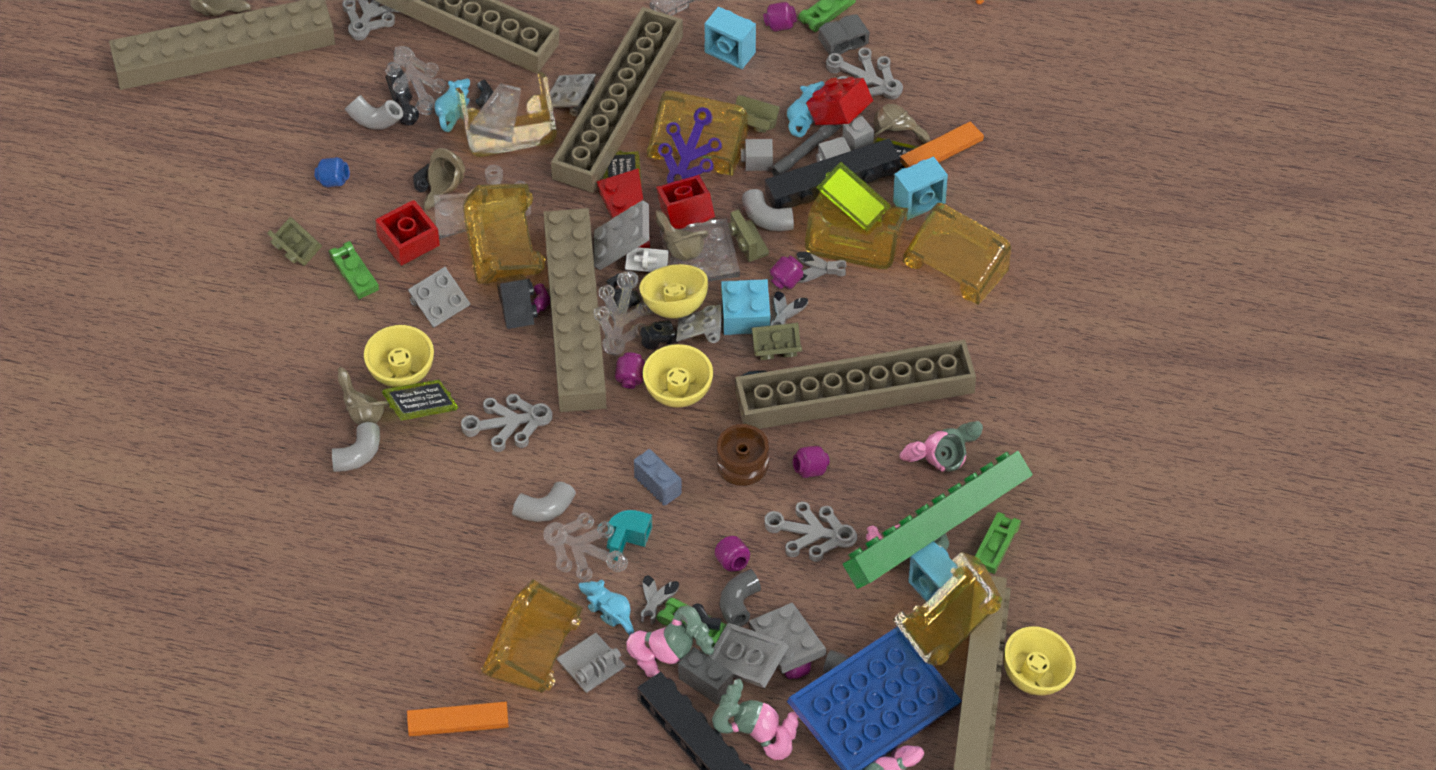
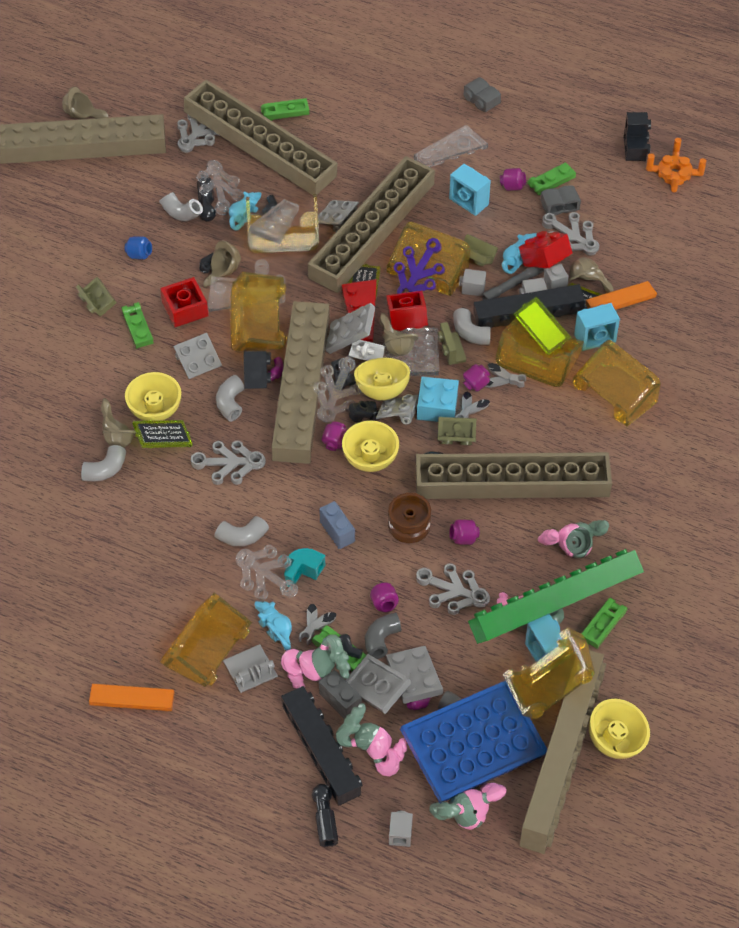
camera: 10 degrees right, 0 degrees up
(486, 343) = (226, 395): none -> light grey cylinder

